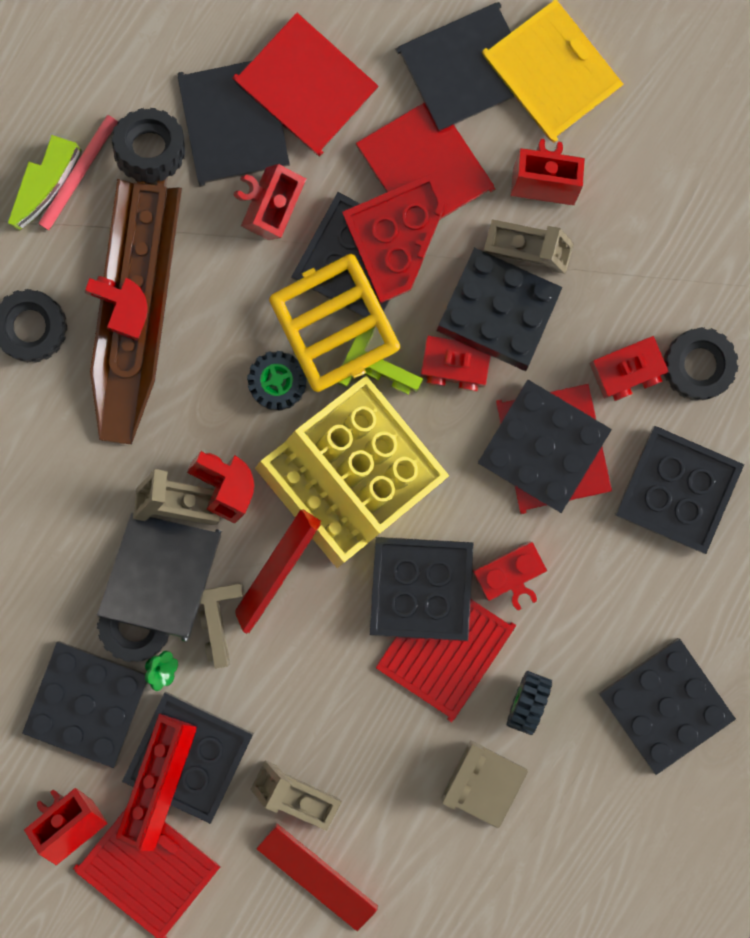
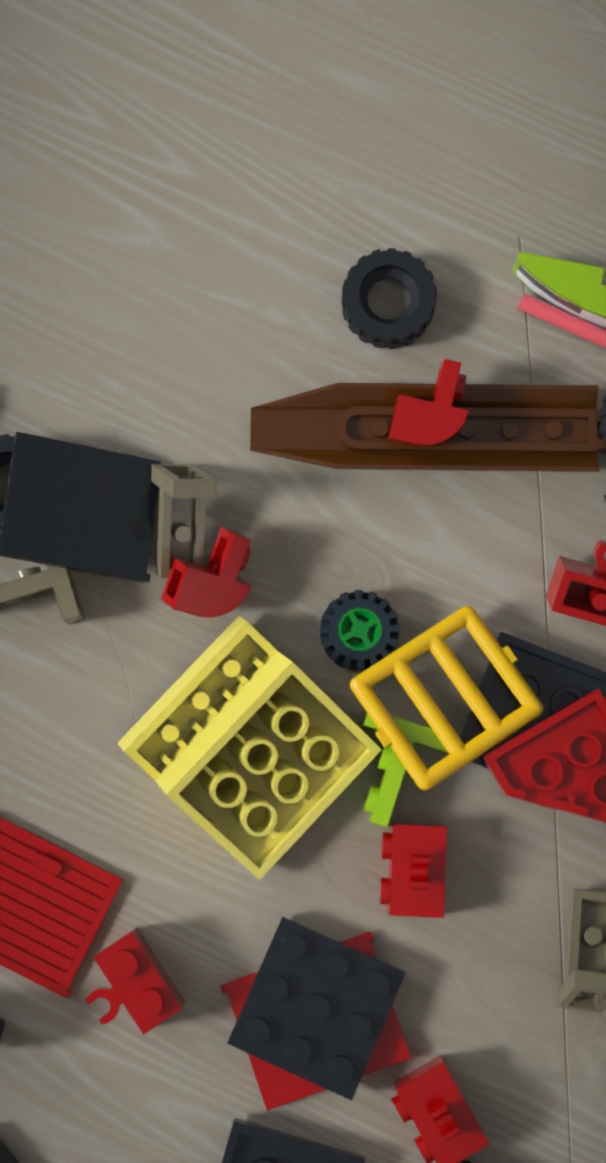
camera: 85 degrees right, 5 degrees down
(276, 569) = (104, 661): red slope -> none
(421, 589) = (100, 862): black plate -> none
(499, 309) = (495, 922): black plate -> none

